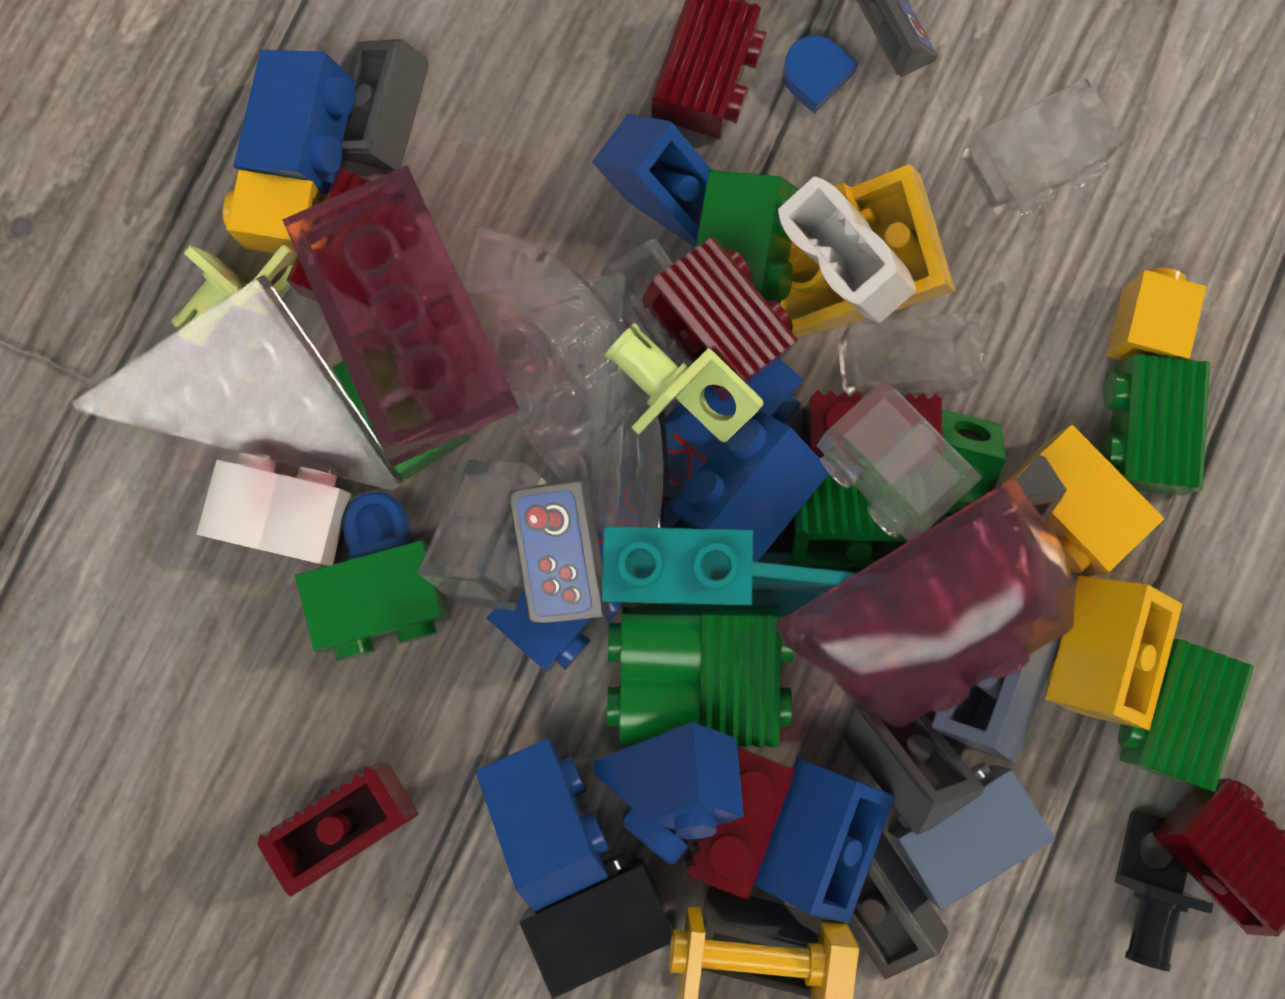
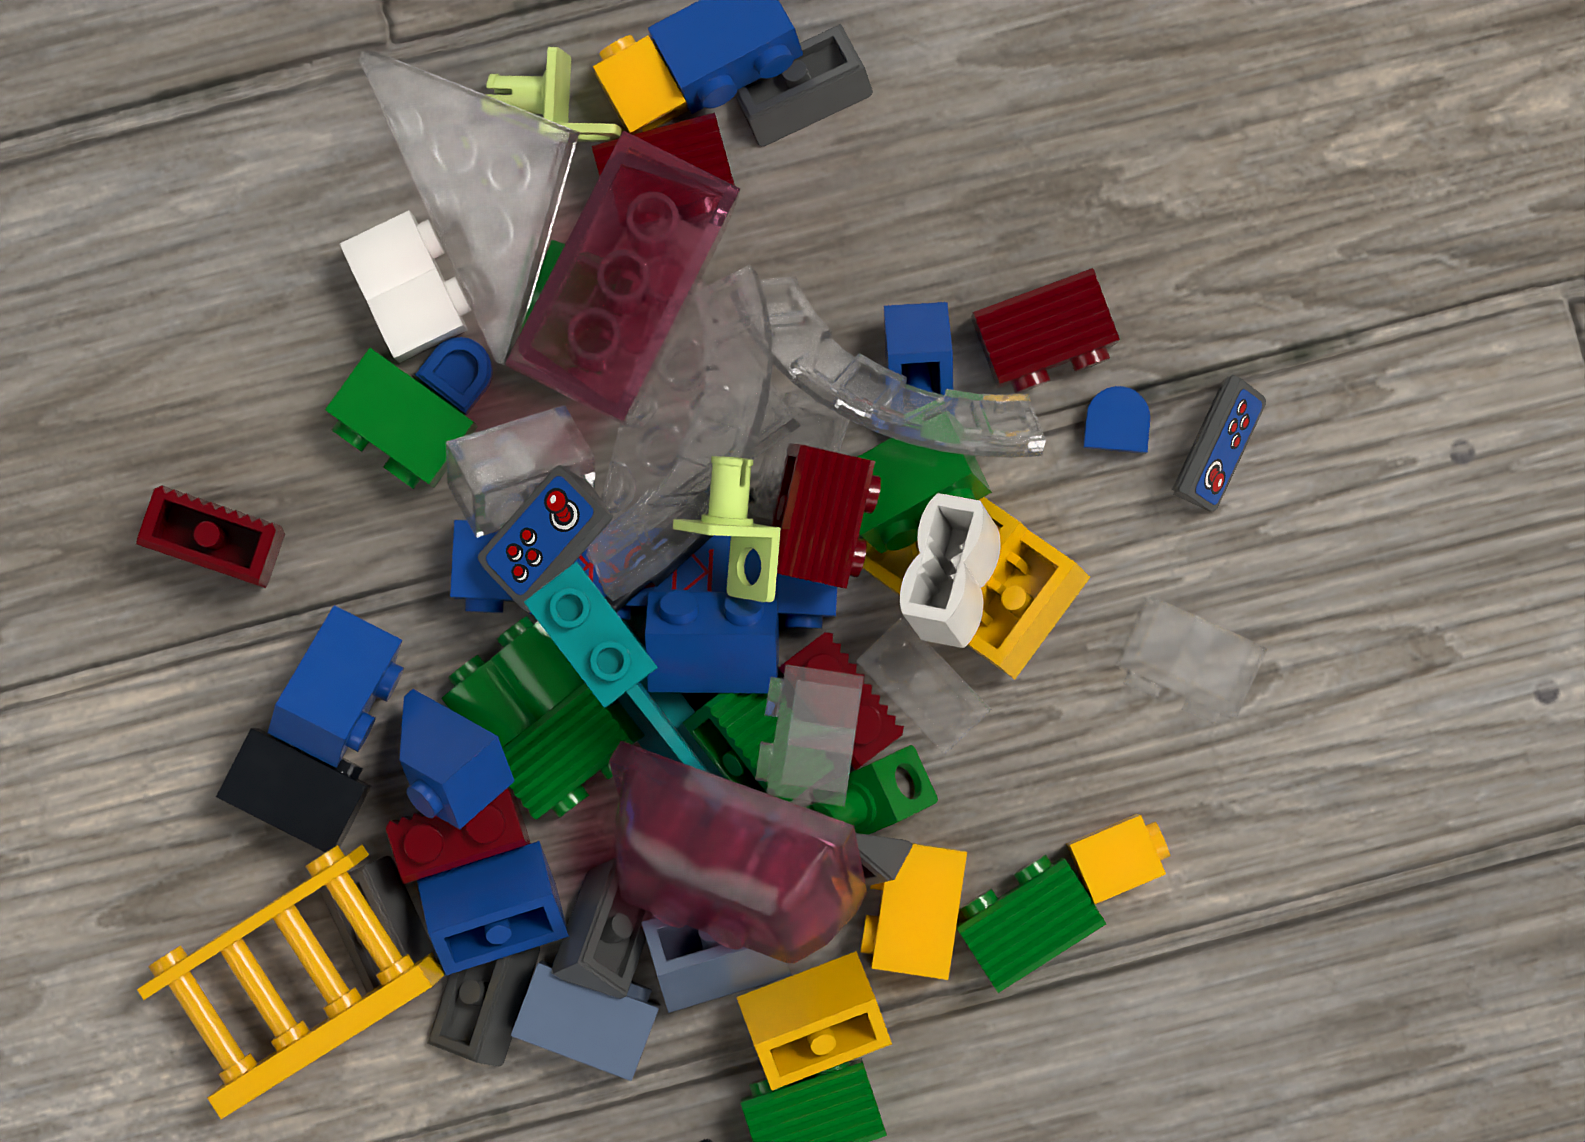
camera: 50 degrees right, 5 degrees up
(657, 837) = (394, 781): blue tile -> none
(662, 206) = (881, 398): none -> clear tile

